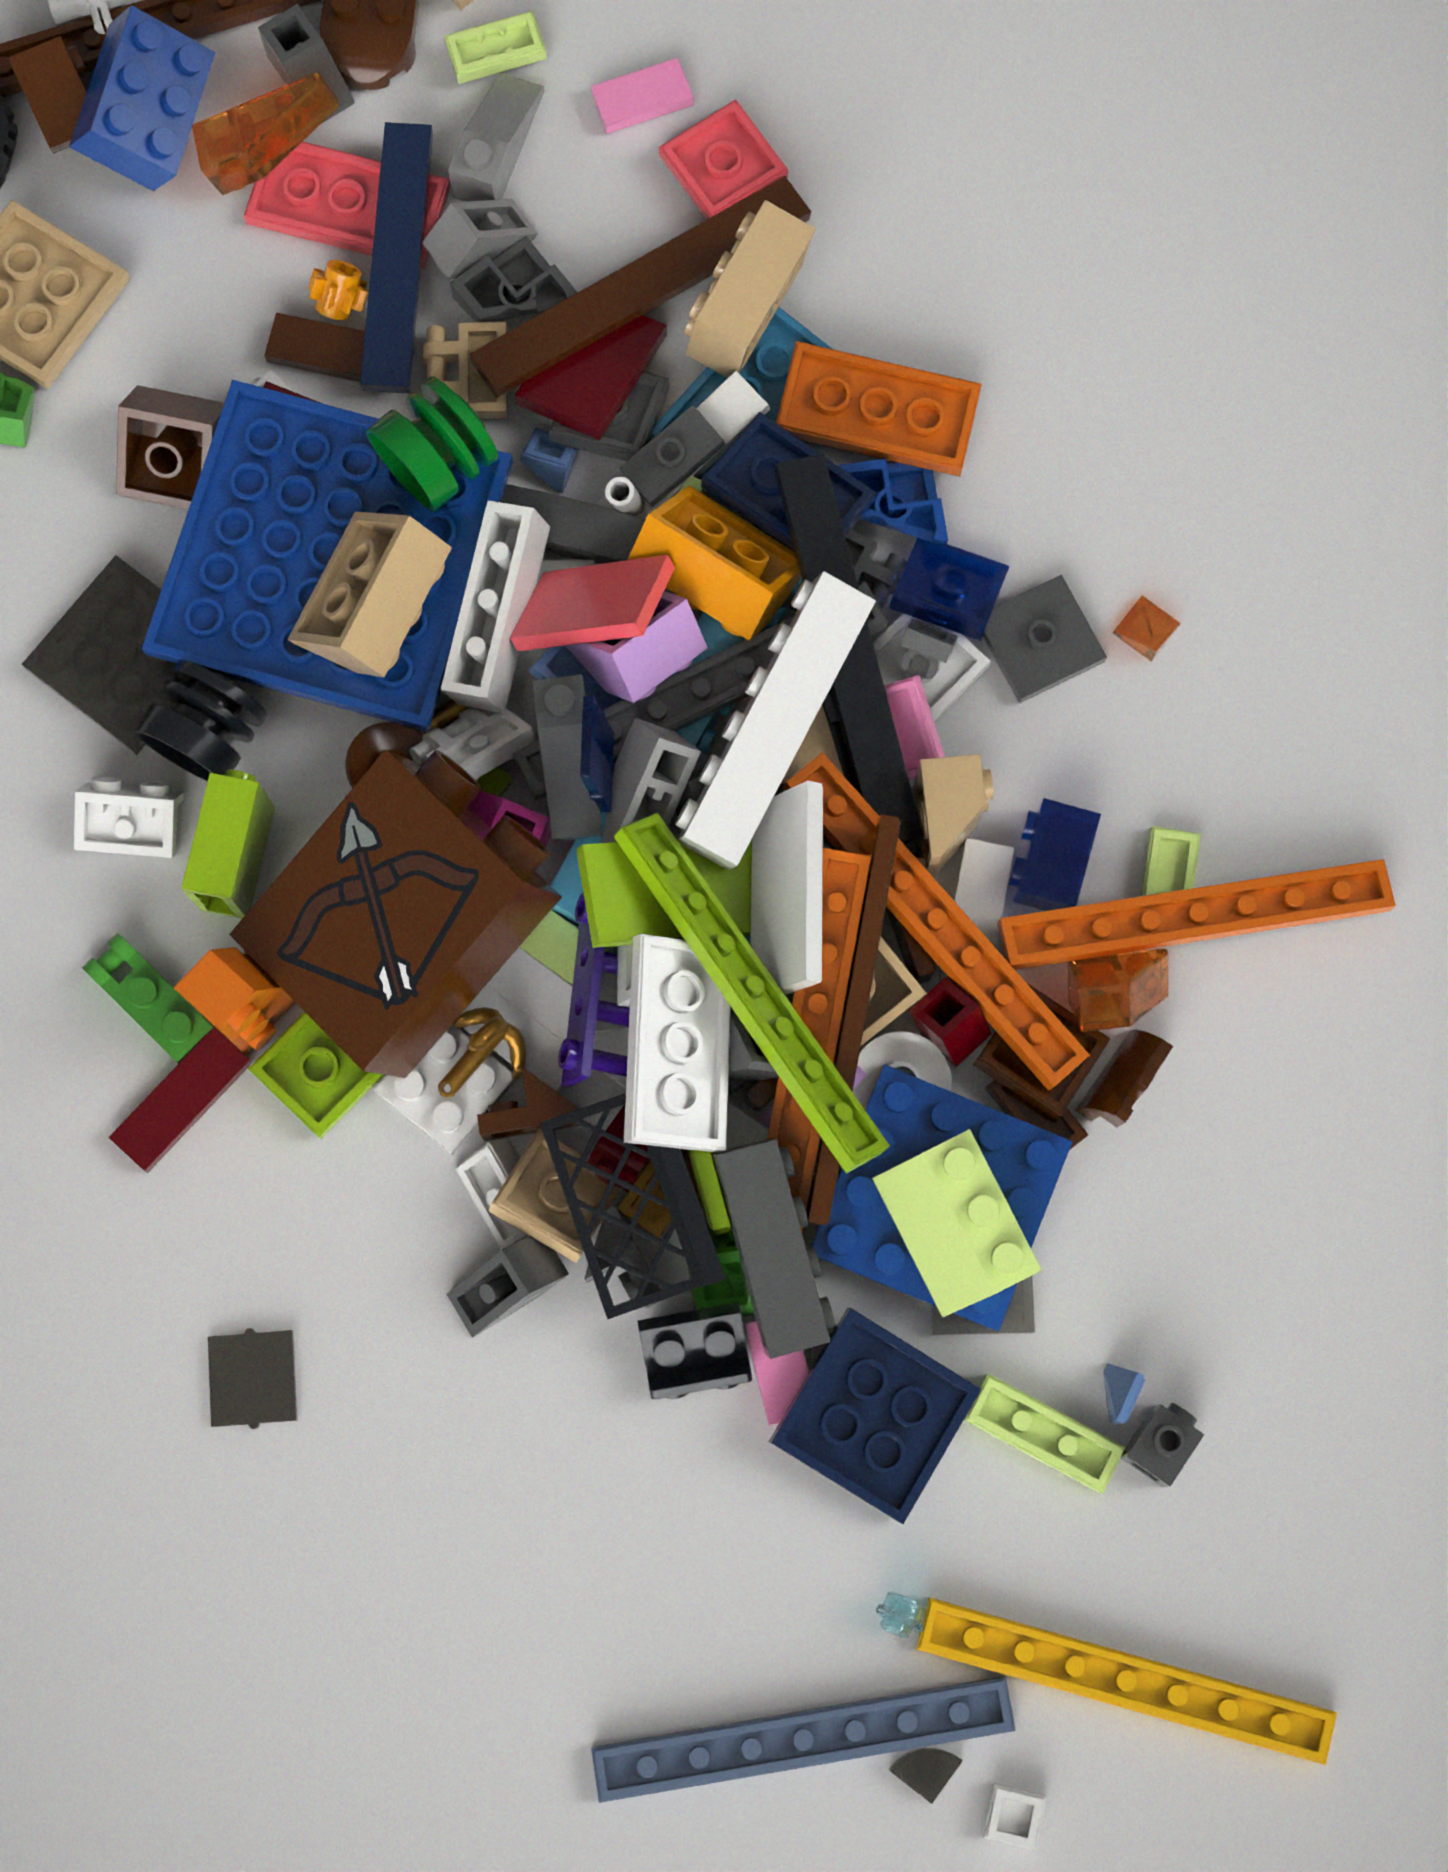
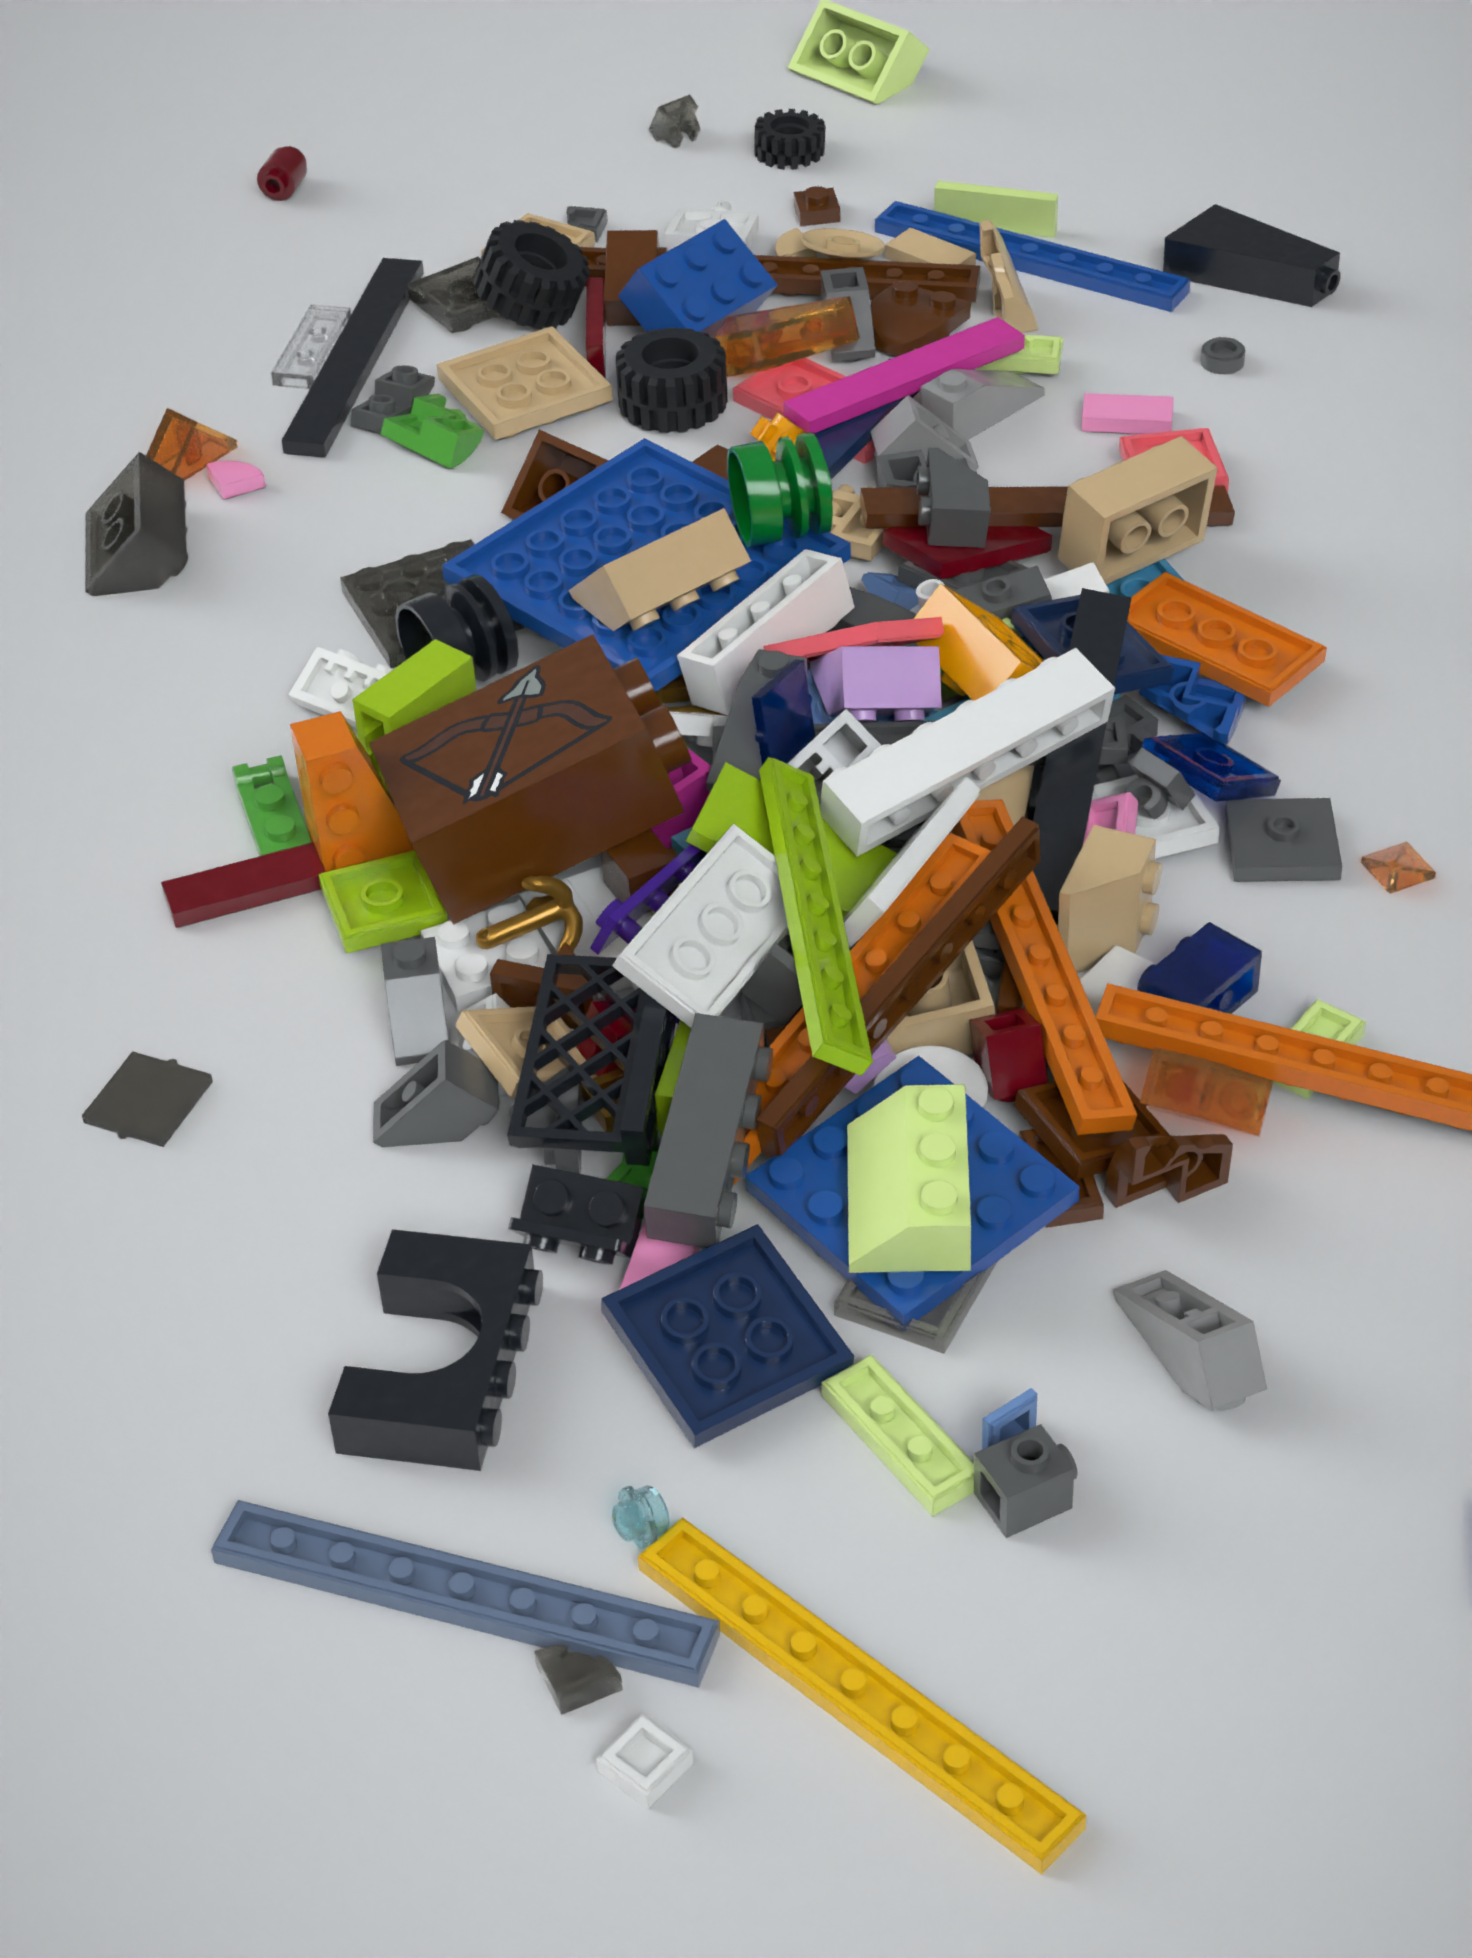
camera: 30 degrees right, 35 degrees down
(57, 181) = (596, 325): none -> dark red tile
(178, 206) = (671, 379): none -> black tyre
(418, 152) = (902, 375): none -> dark pink tile
(424, 1180) = (414, 998): none -> slope
(546, 954) = (634, 864): none -> reddish brown brick
(576, 347) = (953, 502): none -> dark grey slope
(709, 1592) = (452, 1411): none -> black arch
(1216, 1243) = (1196, 1338): none -> light grey slope

